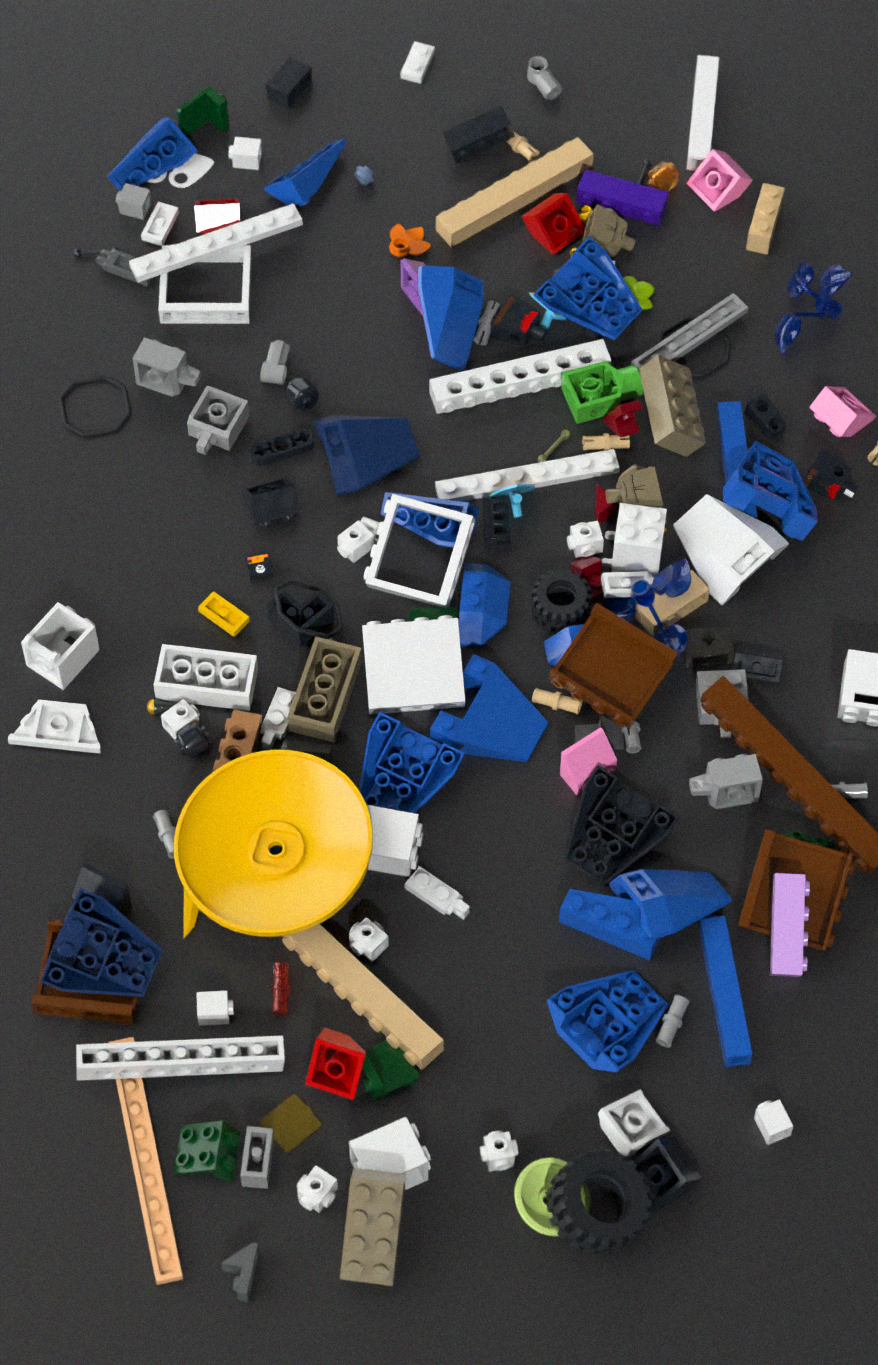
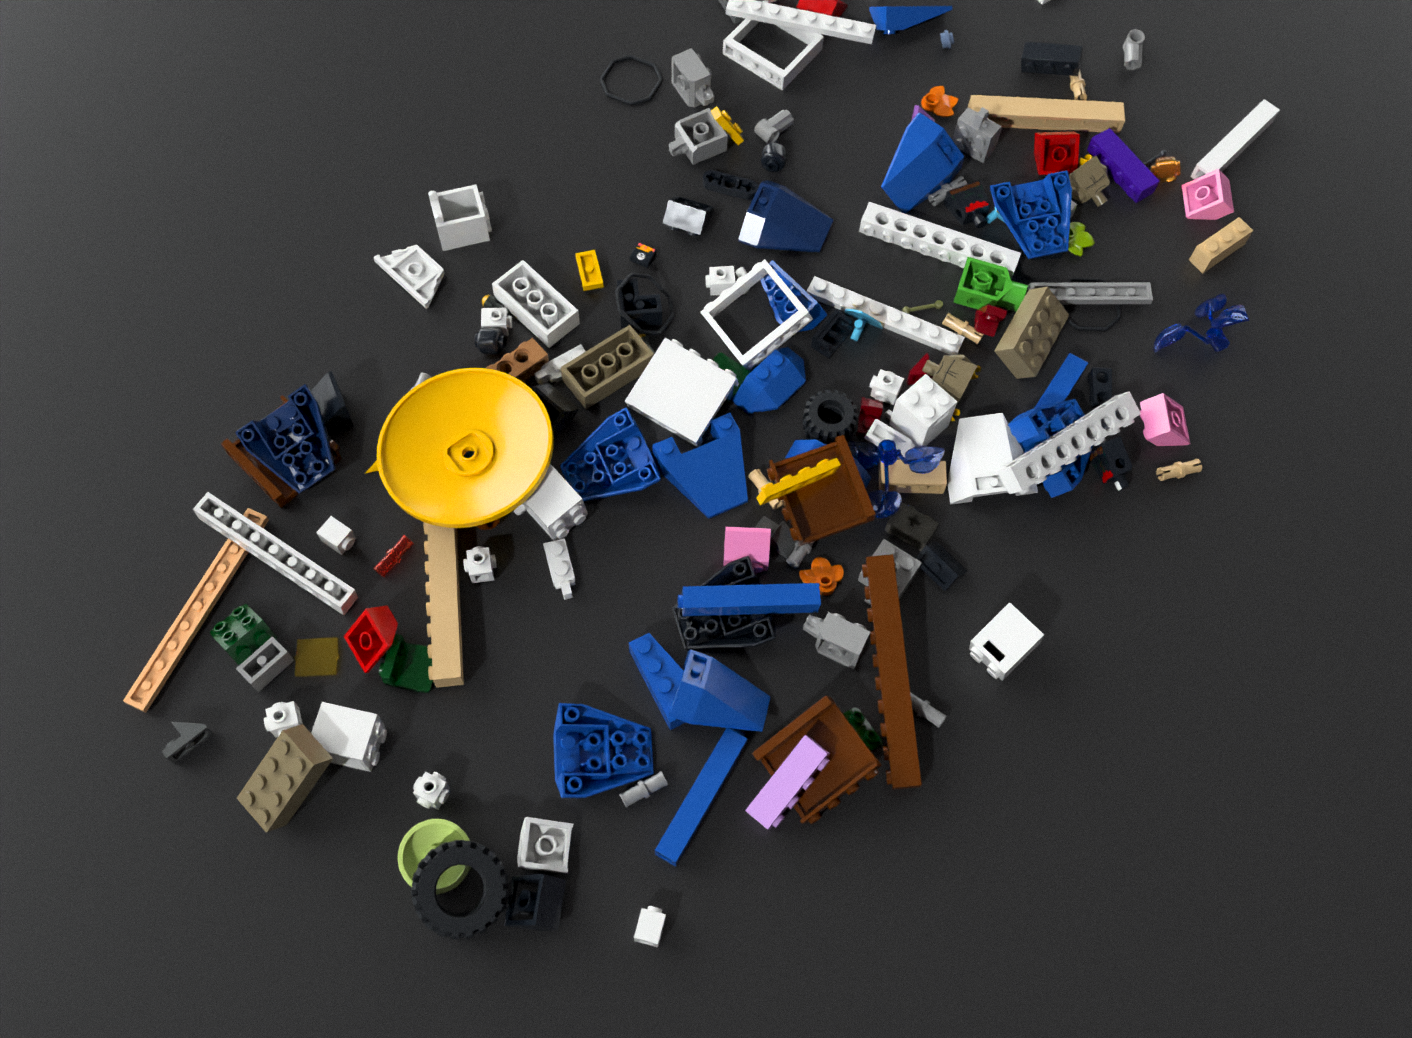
camera: 35 degrees right, 5 degrees up
(231, 387) = (723, 120): none -> yellow plate
(473, 251) = (976, 134): none -> light grey hinge
(587, 675) = (803, 478): none -> yellow plate
(630, 800) = (749, 599): none -> blue brick
(665, 741) = (823, 572): none -> orange plate
(785, 482) = (1068, 443): none -> white brick

